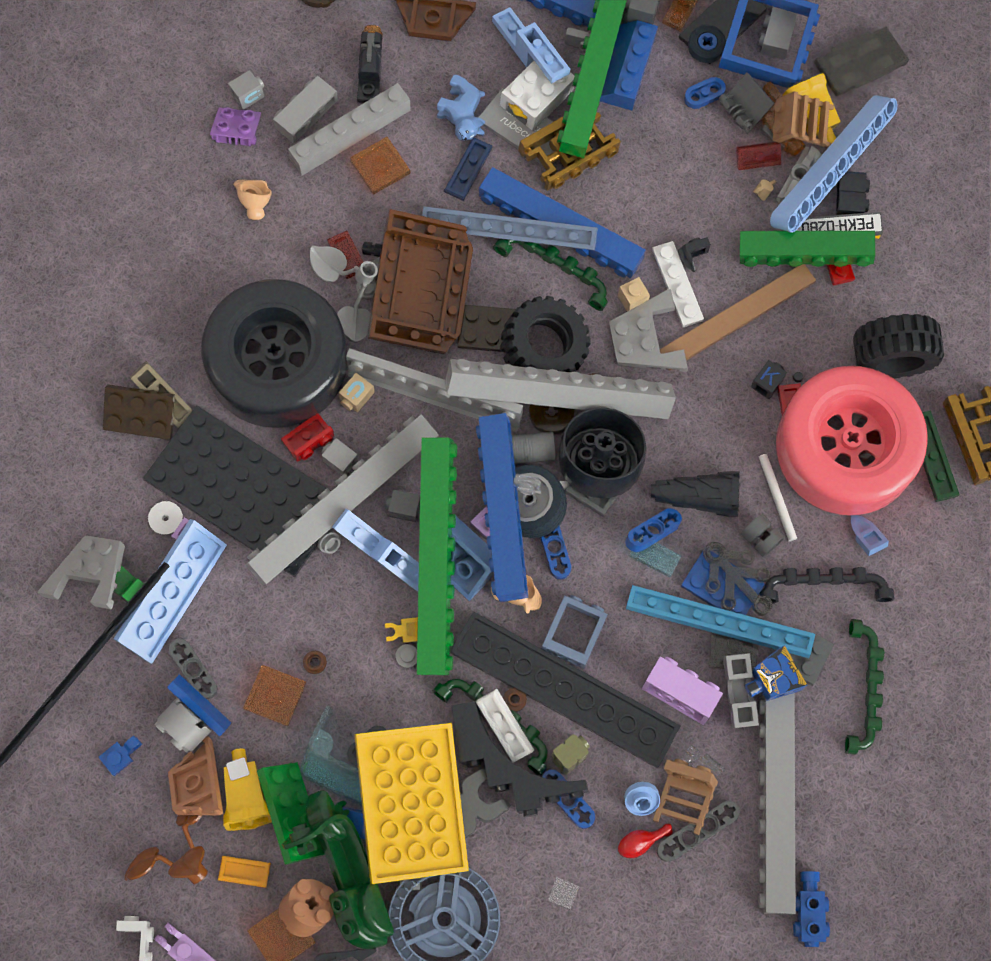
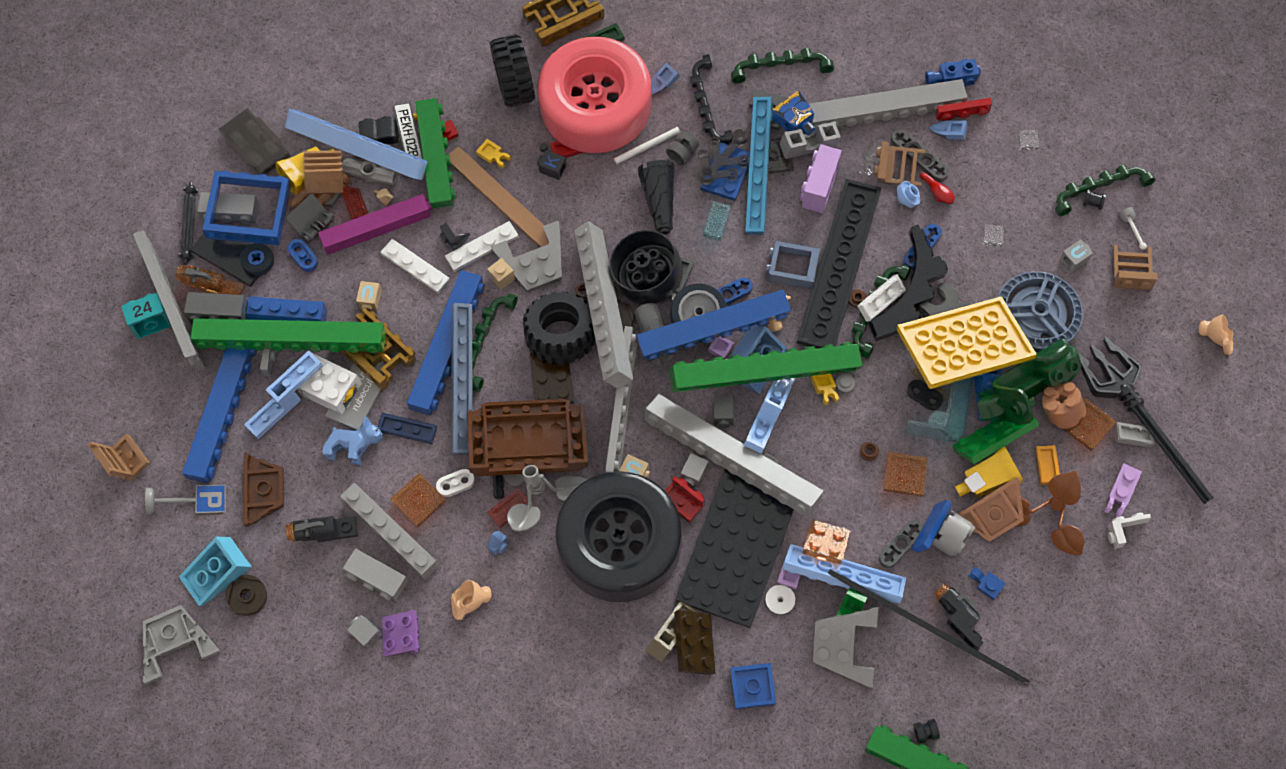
camera: 95 degrees left, 5 degrees down
(76, 465) = (753, 686): none -> blue plate
(88, 714) = (962, 612): none -> black plate
(216, 583) = (826, 541): none -> clear orange plate
(306, 233) = (497, 543): none -> medium blue plate
(384, 204) = (454, 481): none -> white plate
(527, 484) = (692, 307): clear plate -> none
(570, 753) = (891, 245): olive brick -> none
(636, 151) = (368, 295): none -> tan brick
(650, 538) = (695, 216): blue beam -> none
(667, 208) = (415, 266): none -> white plate
(727, 172) = (375, 224): none -> magenta brick
(728, 882) = (951, 129): none -> medium blue plate
(752, 906) = (963, 109): none -> red plate
(799, 315) = (492, 152): none -> yellow plate

